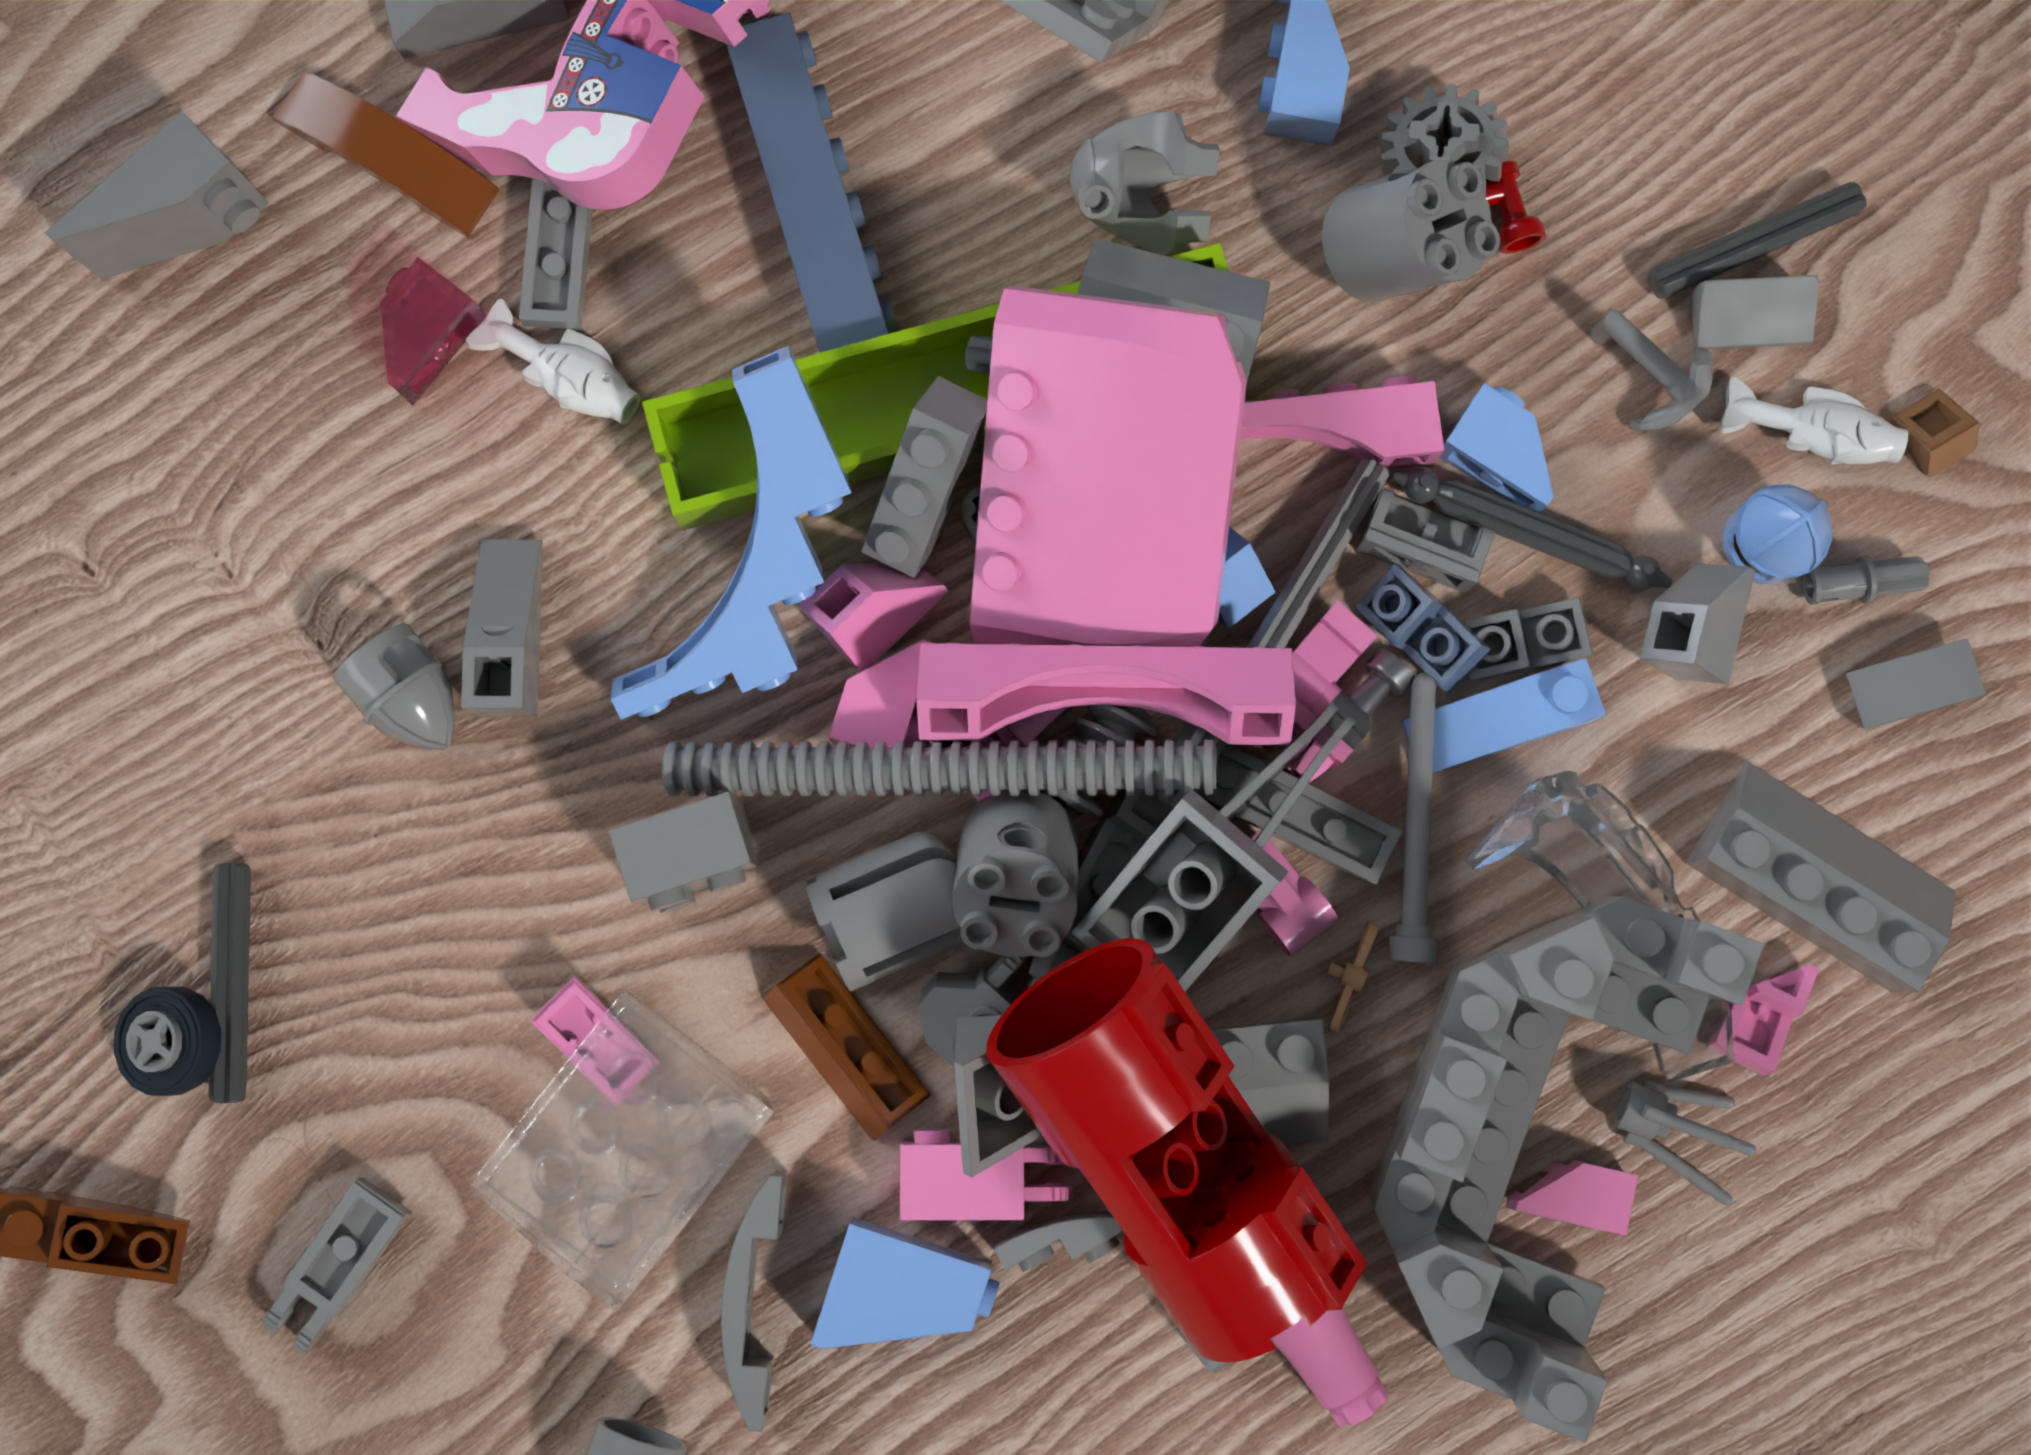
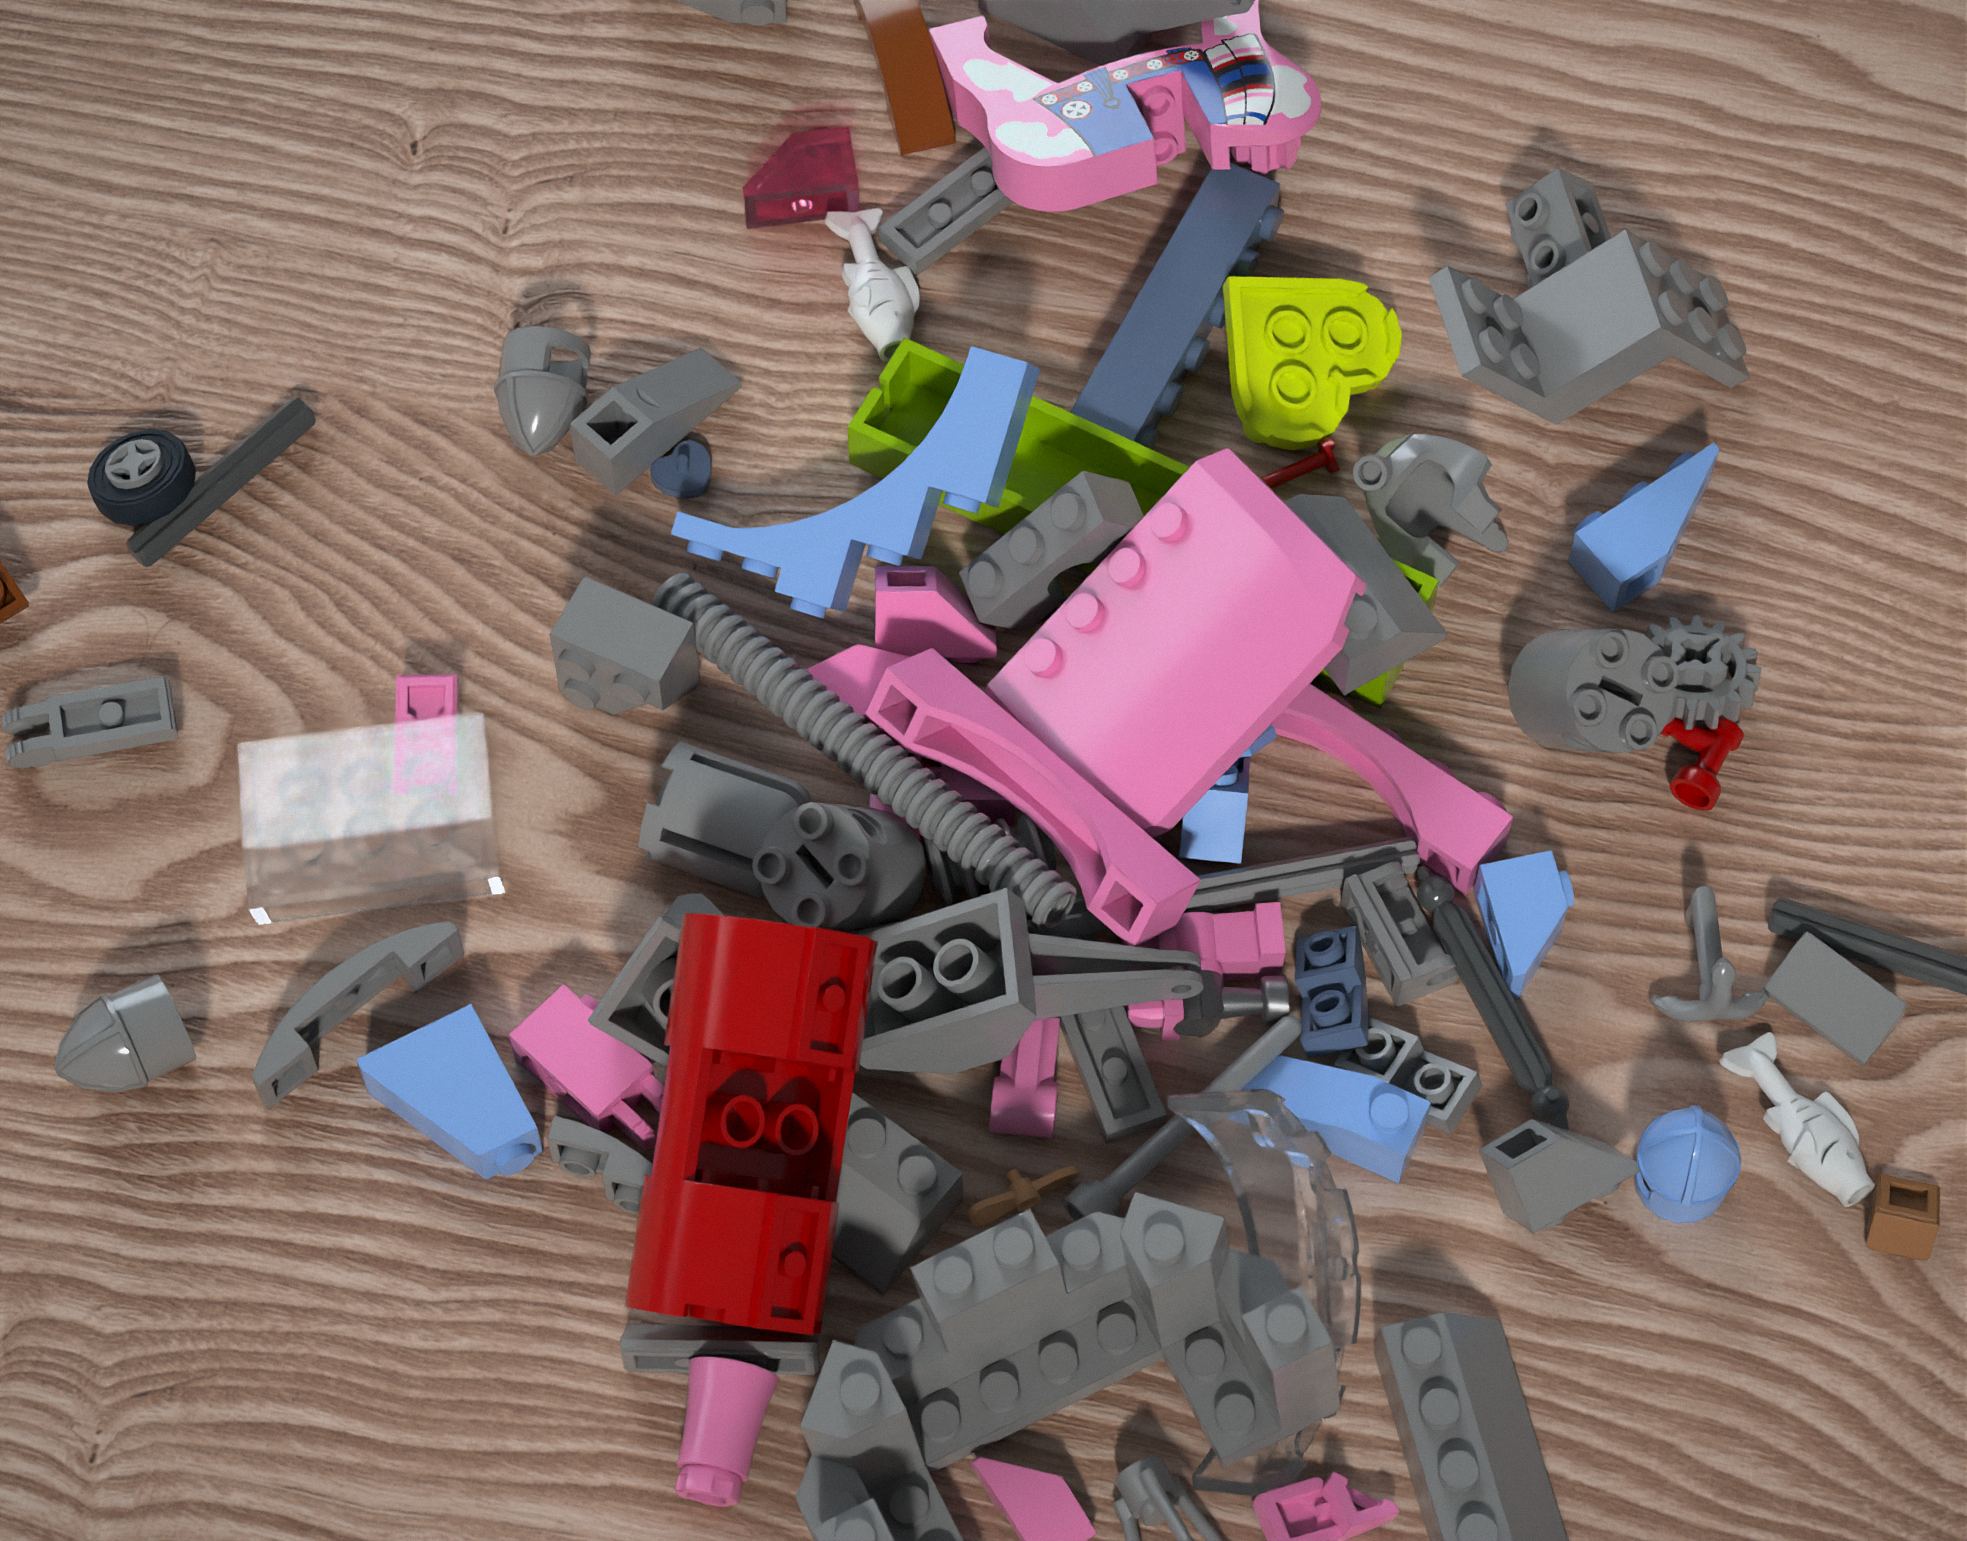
camera: 45 degrees right, 20 degrees down
(567, 650) = (684, 472): none -> sand blue piece
(846, 1046) = (596, 903): dark orange slope -> none
(934, 139) = (1302, 353): none -> neon yellow plate
(1022, 209) = (1323, 458): none -> red piece
(1865, 579) = (1731, 1267): light grey axle -> none
(1916, 683) = (1697, 1376): light grey slope -> none

